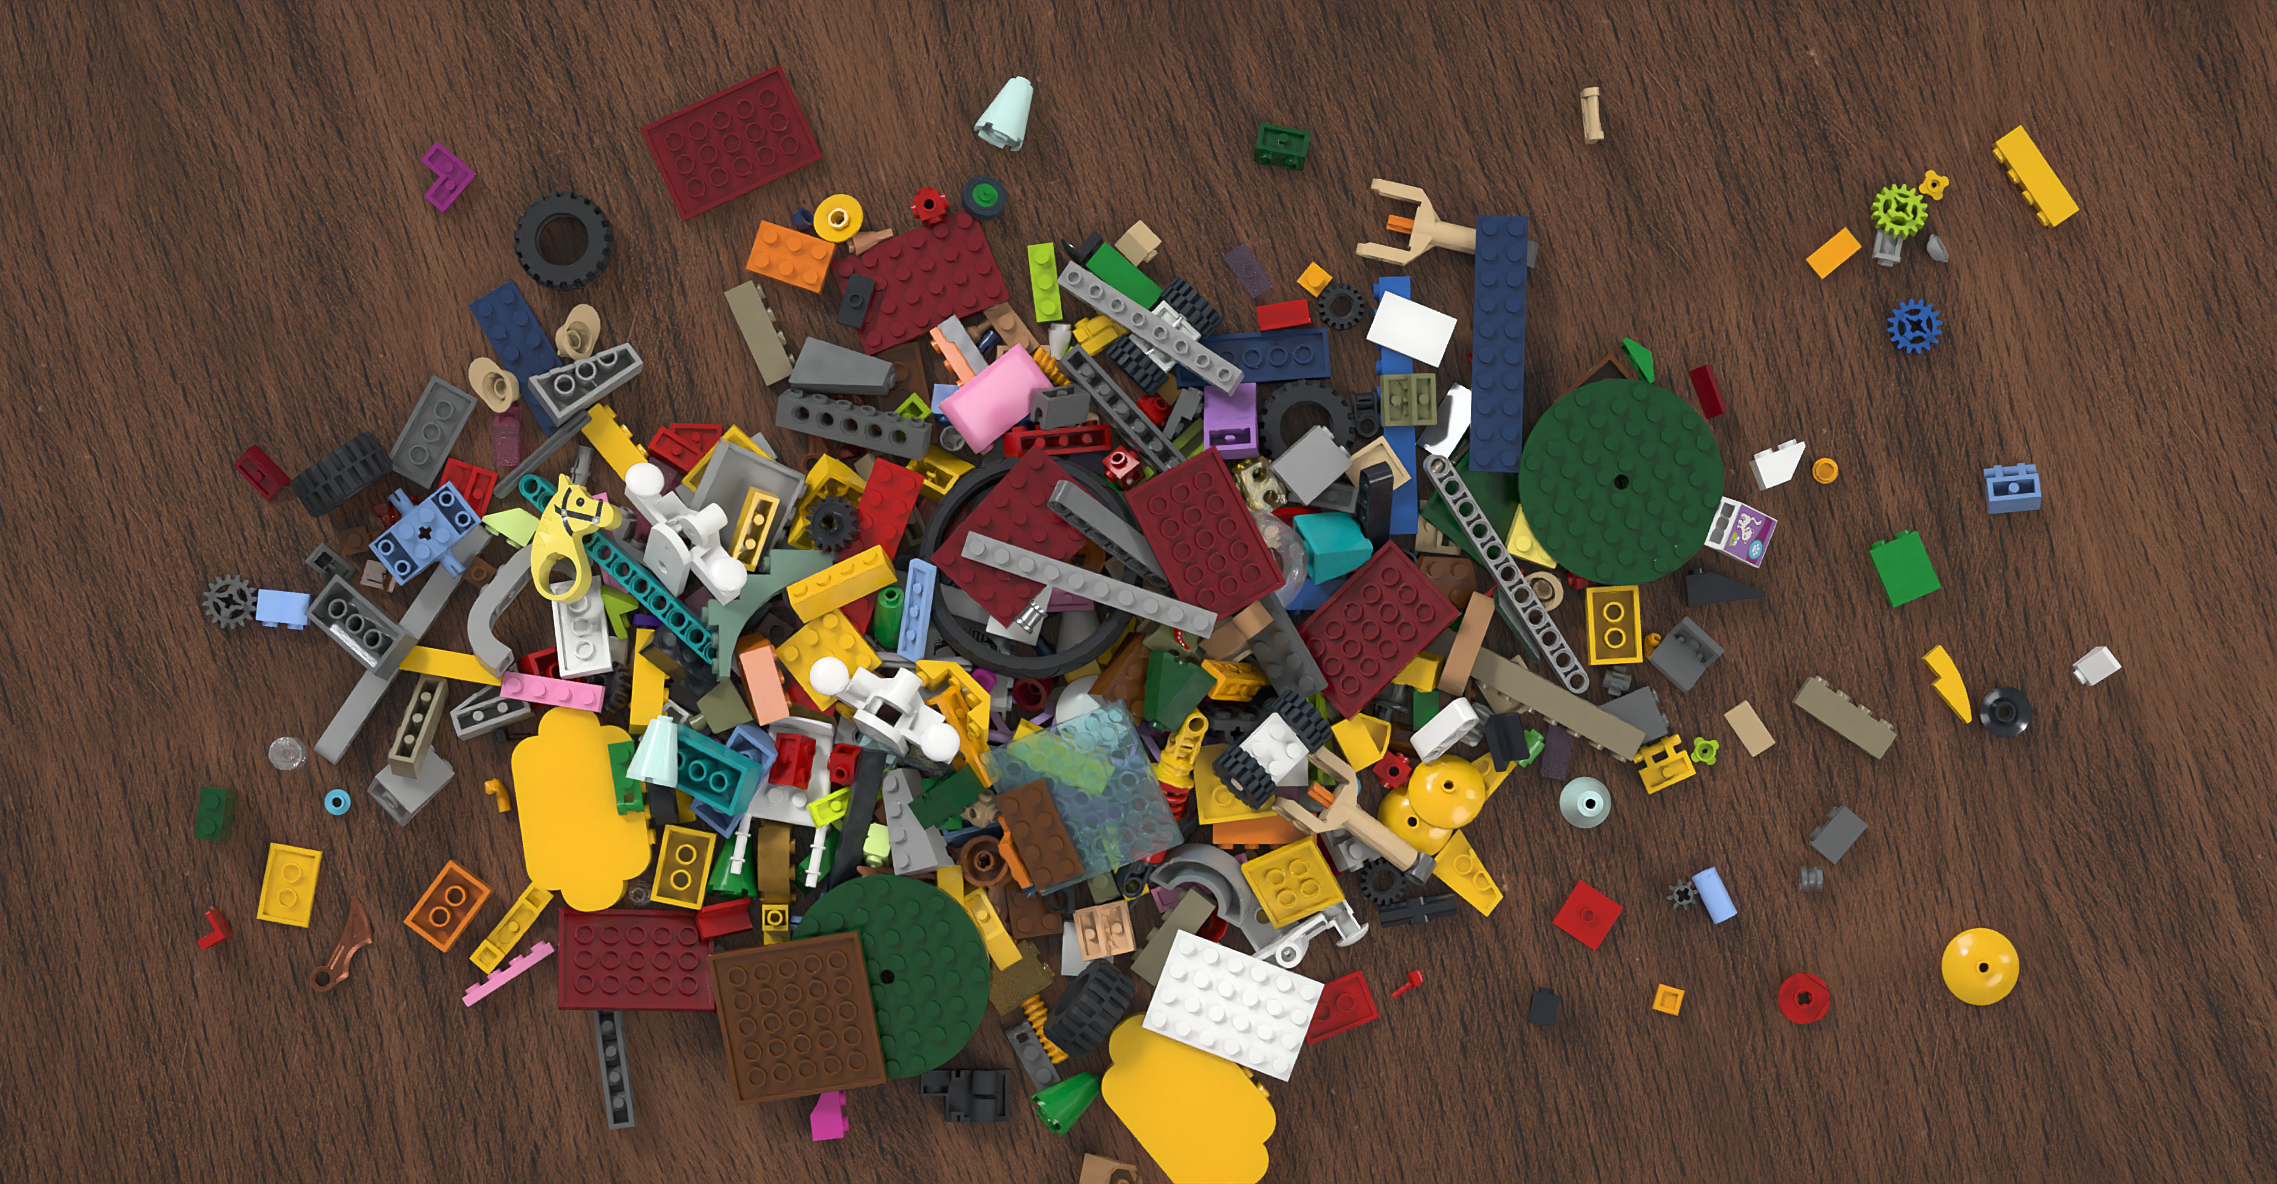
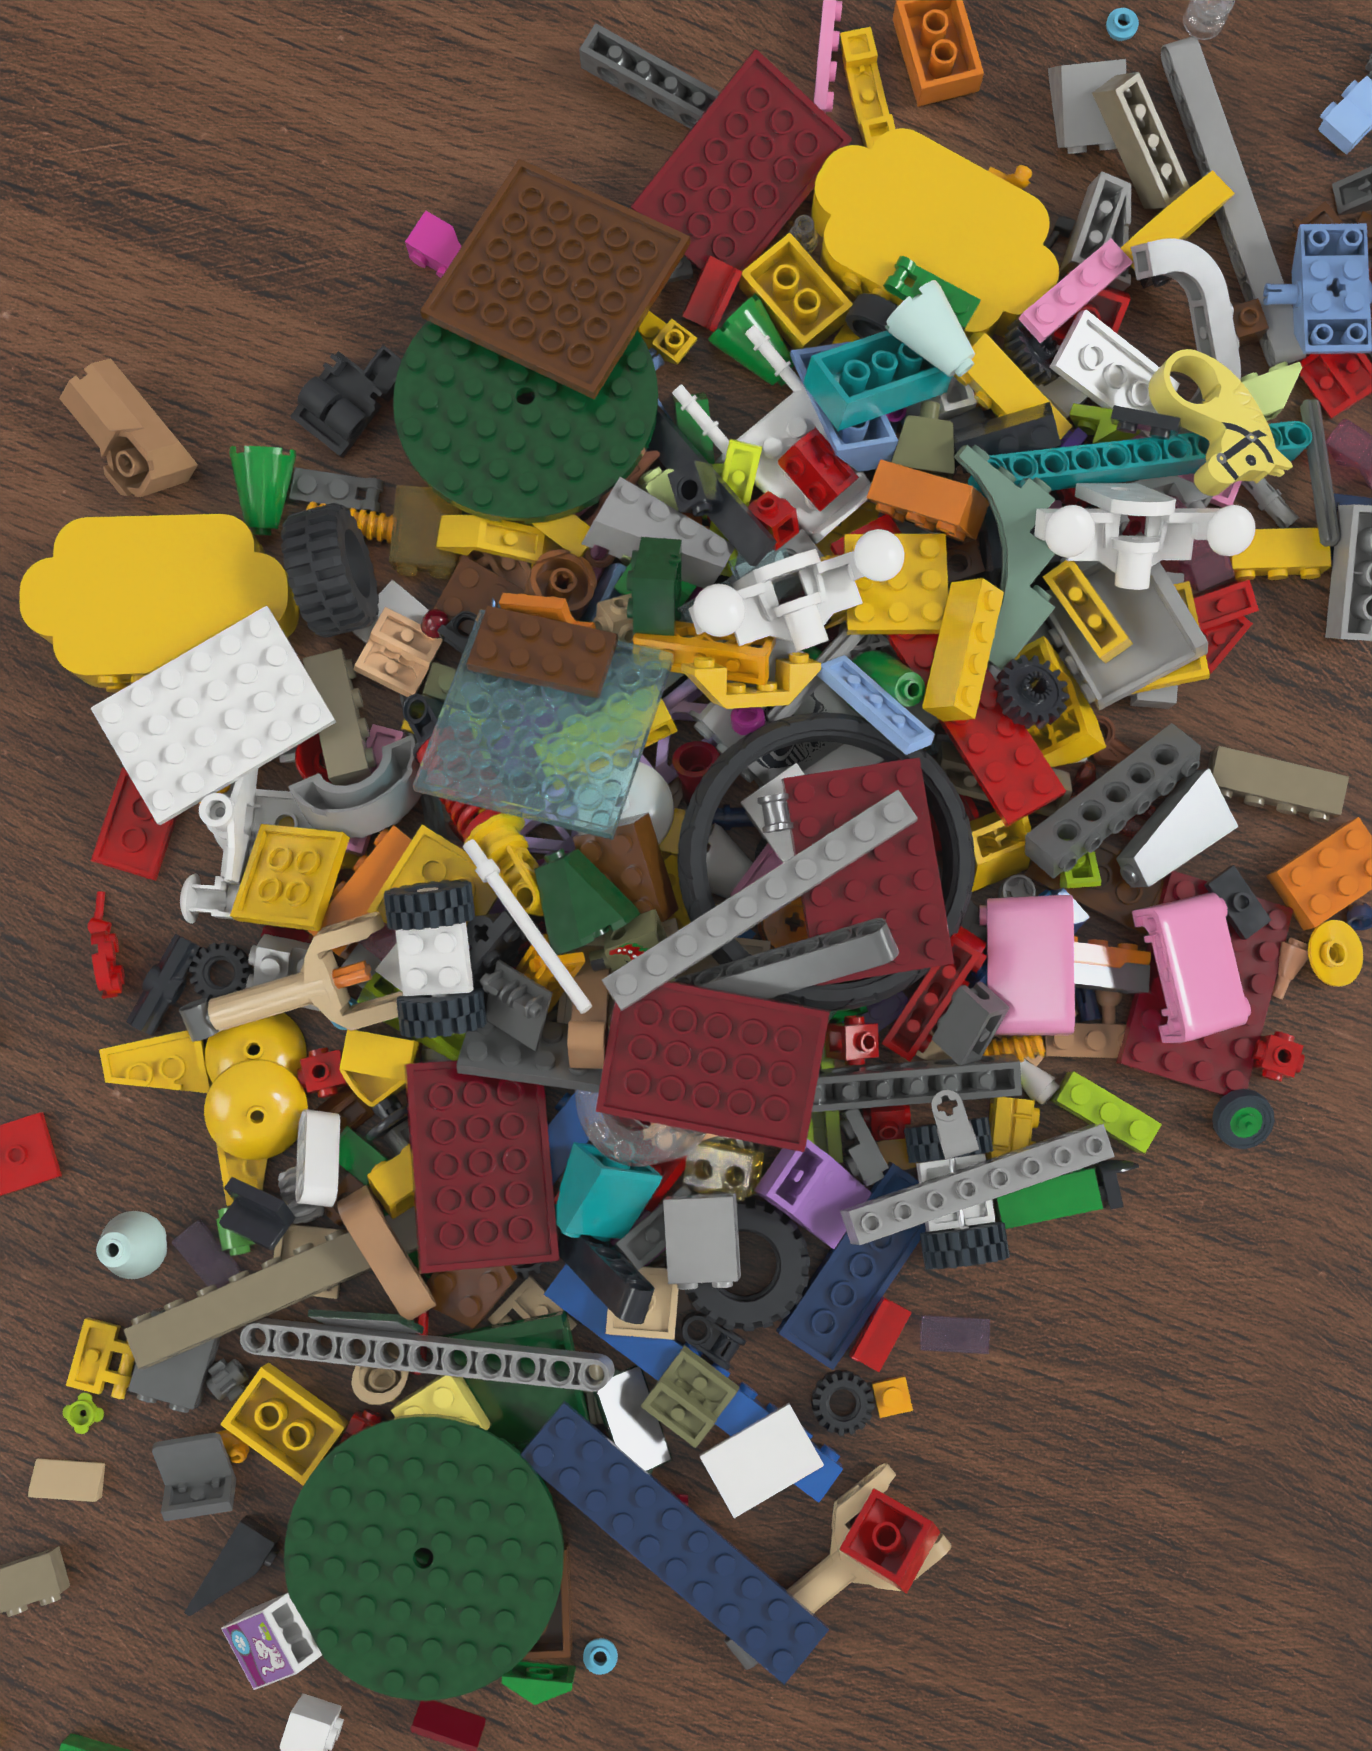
camera: 125 degrees right, 5 degrees down
(361, 627) = (1283, 163): dark grey brick -> none
(610, 593) = (1159, 425): none -> black plate
(774, 863) = (727, 378): pearl gold brick -> none
(856, 823) = (684, 483): none -> black brick
(918, 299) = (1195, 967): none -> bright pink windscreen
(1007, 115) = (1312, 1209): light aqua cone -> none
(1069, 920) = (432, 621): none -> dark red hinge
(1132, 366) = (955, 1130): none -> light grey piece
(1138, 244) = (1072, 1242): tan brick -> none
(1197, 756) = (489, 872): none -> white bar
(1261, 681) = (516, 1003): none -> dark grey hinge
(1281, 146) = (1059, 1474): dark green bracket -> none
(1397, 218) = (890, 1540): none -> red slope
(1431, 952) = (107, 974): none -> red plate
(1592, 337) = (603, 1645): none -> medium azure plate

